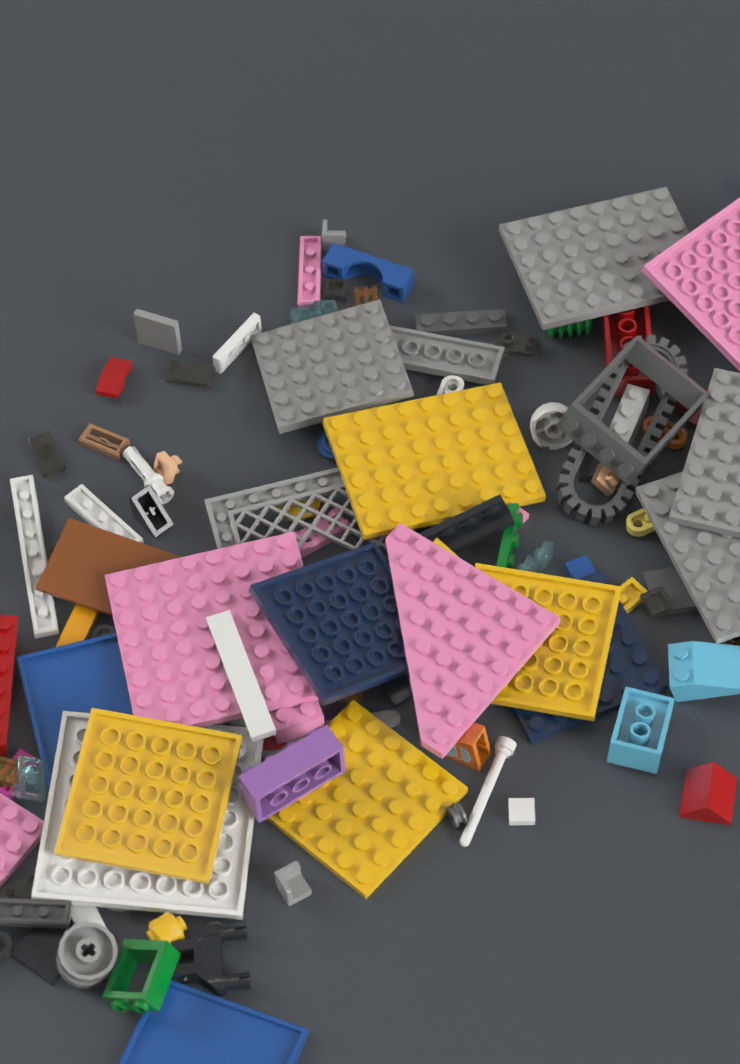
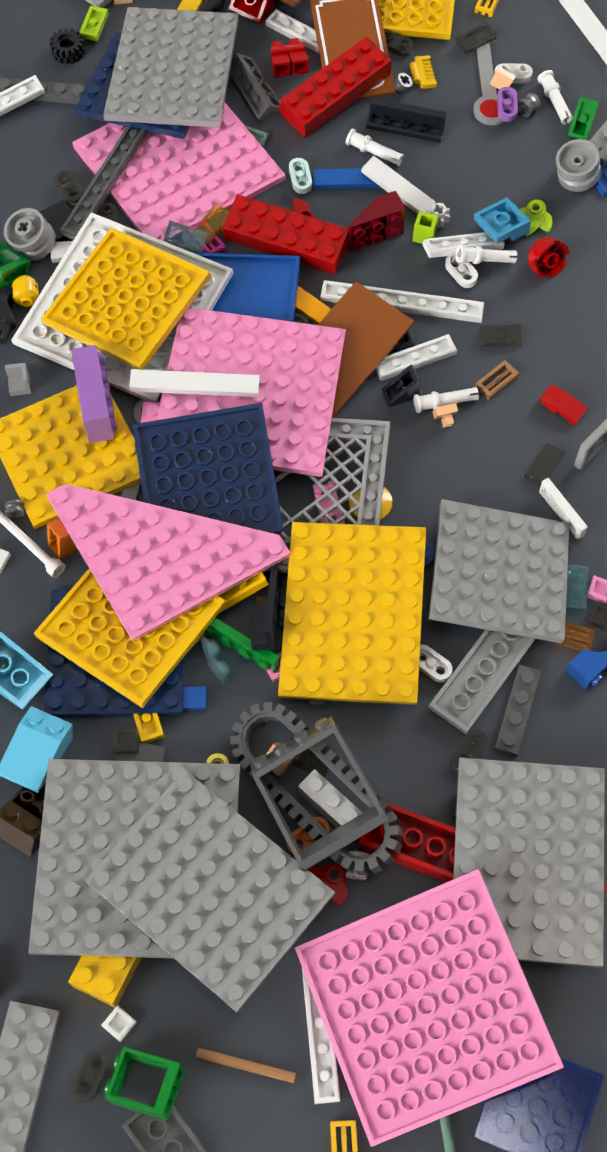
camera: 110 degrees right, 10 degrees up
(544, 426) = (358, 733): white cylinder -> none

